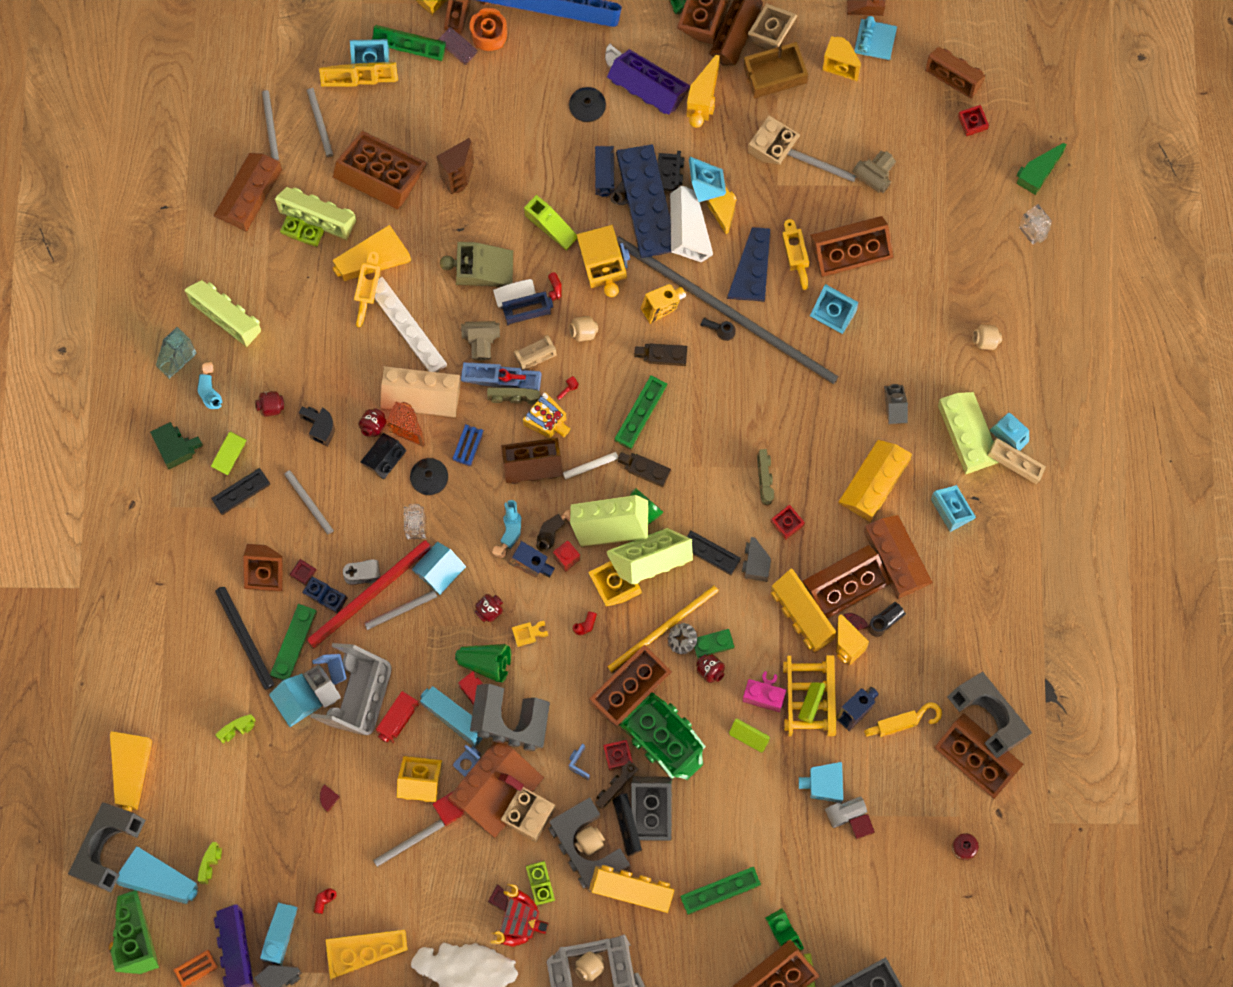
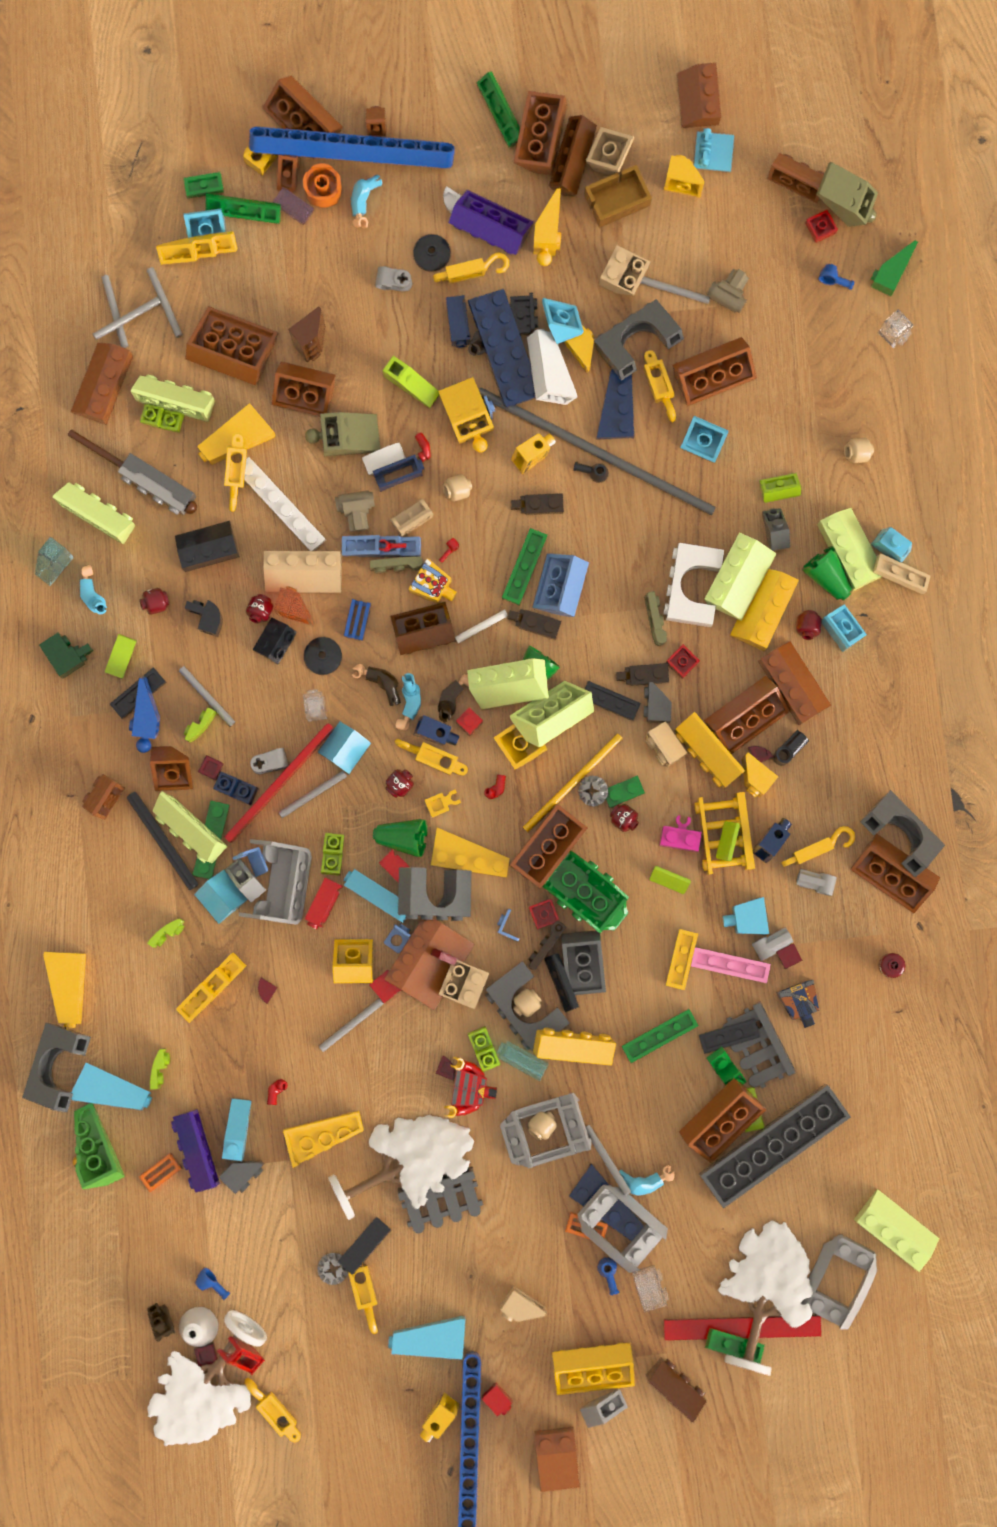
camera: 10 degrees left, 10 degrees up
(192, 587) = (102, 797): none -> dark orange slope
(245, 513) = (146, 717): none -> blue slope
(272, 626) = (188, 827): none -> yellowish green slope
(273, 788) = (211, 987): none -> yellow slope
(279, 287) = (147, 479): none -> piece
(281, 132) = (126, 318): none -> light grey bar
(293, 533) = (195, 730): none -> lime slope
(328, 358) = (206, 546): none -> black slope
(373, 16) = (203, 184): none -> green plate
(412, 671) = (332, 854): none -> lime slope
(443, 218) = (303, 389): none -> dark orange slope
(486, 504) = (383, 679): none -> dark brown arm
(522, 45) = (359, 196): none -> medium azure arm
(524, 585) = (431, 757): none -> yellow piece
(536, 682) = (462, 854): none -> yellow wing
(544, 123) = (390, 279): none -> light grey piece
(578, 897) = (522, 1060): none -> clear light blue slope
(622, 123) = (470, 269): none -> yellow piece
(674, 433) = (560, 584): none -> medium blue slope
(746, 529) = (644, 674): none -> dark brown hinge
(751, 816) = (681, 959): none -> yellow plate
(760, 599) = (665, 744): none -> tan slope
(791, 898) = (729, 1035): none -> black tile
(793, 189) = (651, 319): none -> dark grey arch
(800, 828) = (730, 965): none -> bright pink plate
(804, 422) = (679, 607): none -> white arch
(823, 922) = (767, 1052): none -> dark grey fence
(854, 445) = (740, 576): none -> yellowish green slope
(867, 873) = (800, 1001): none -> torso
(903, 756) = (820, 882): none -> light grey piece
(905, 365) = (780, 487): none -> lime slope
(918, 500) = (809, 624): none -> dark red head
(944, 453) = (829, 573): none -> green cone
(976, 169) = (830, 276): none -> blue bar
(1001, 93) = (847, 196): none -> olive slope

